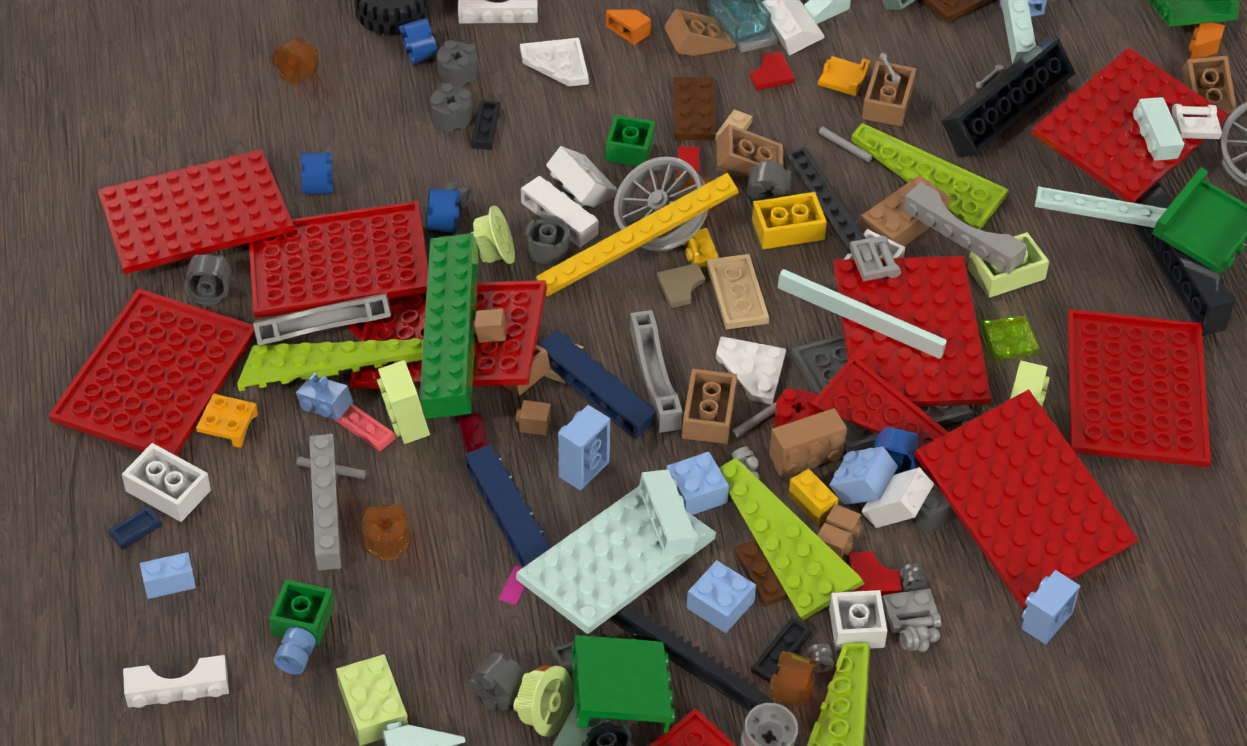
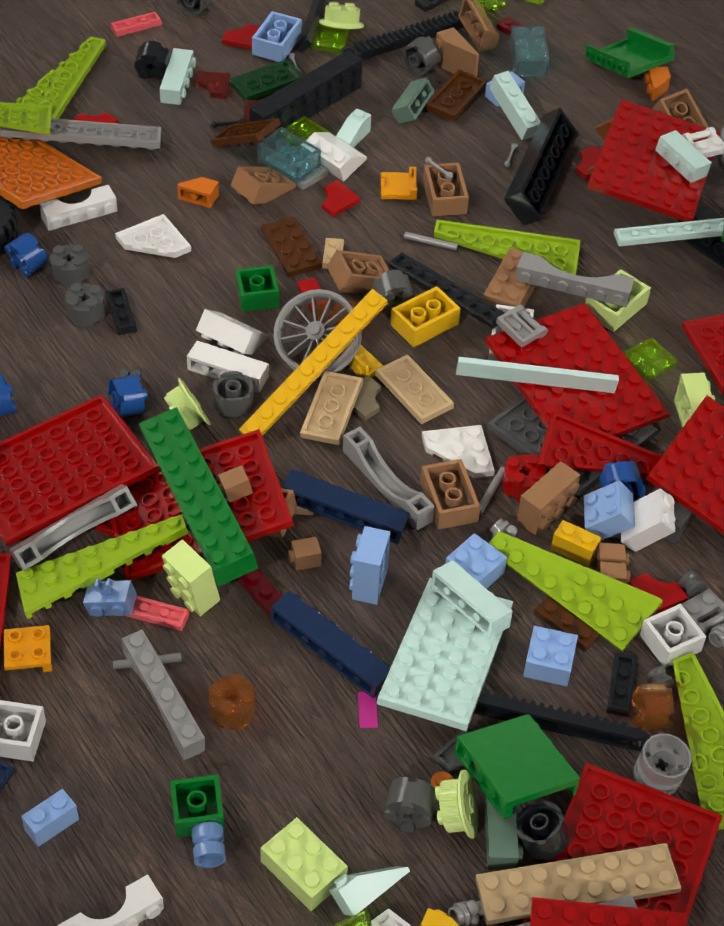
camera: 25 degrees left, 0 degrees up
(639, 283) = (331, 408): none -> tan plate

